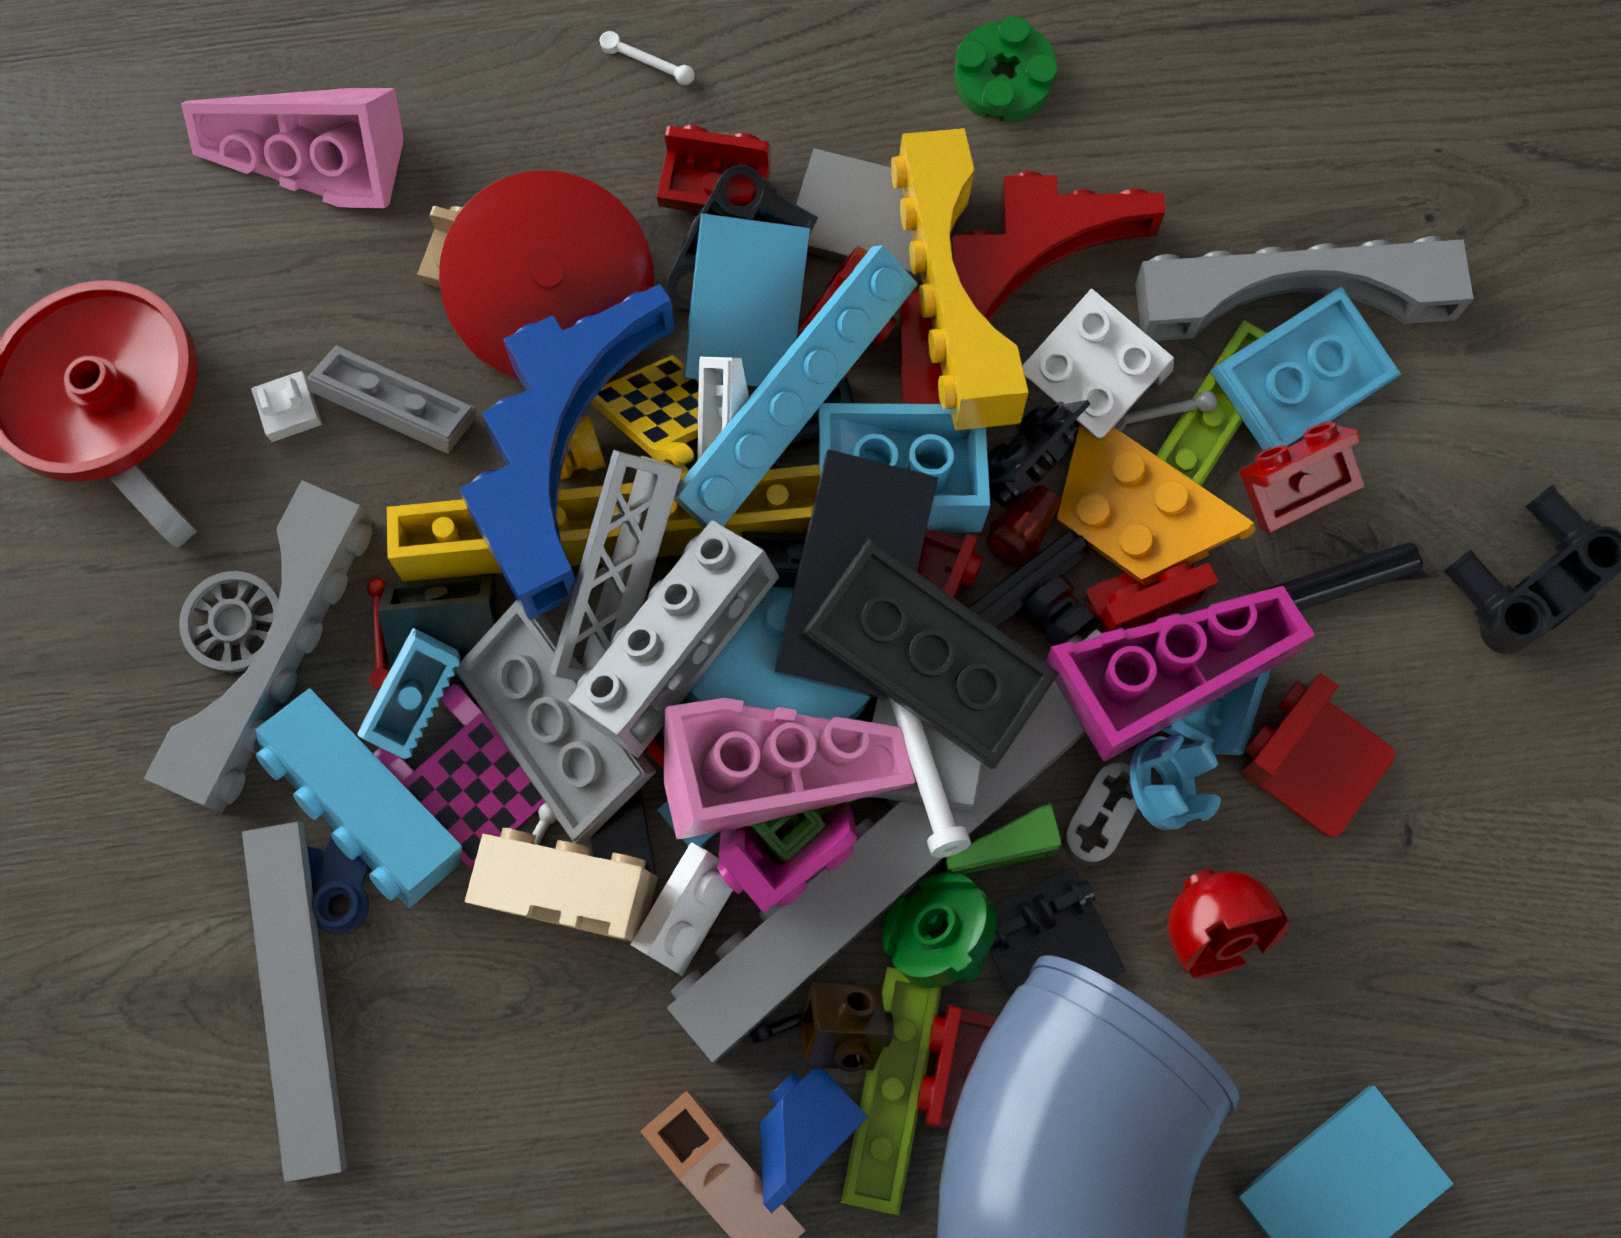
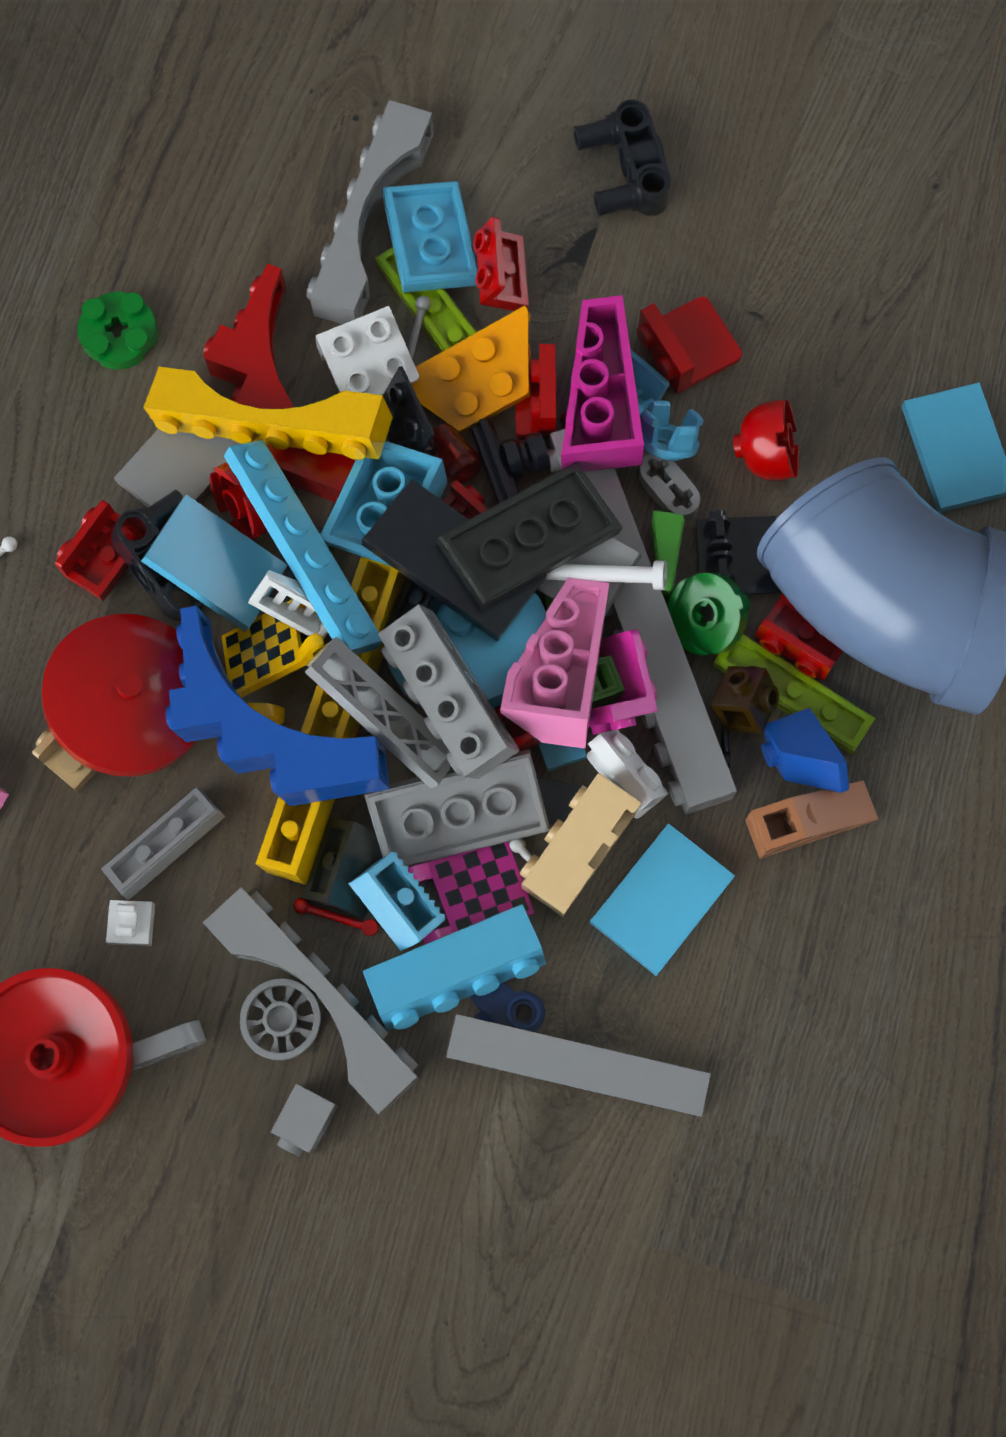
camera: 70 degrees left, 0 degrees up
(118, 698) = (303, 1121): none -> light grey brick
(546, 1023) = (662, 899): none -> medium azure tile
(1354, 576) = (577, 274): black axle -> none

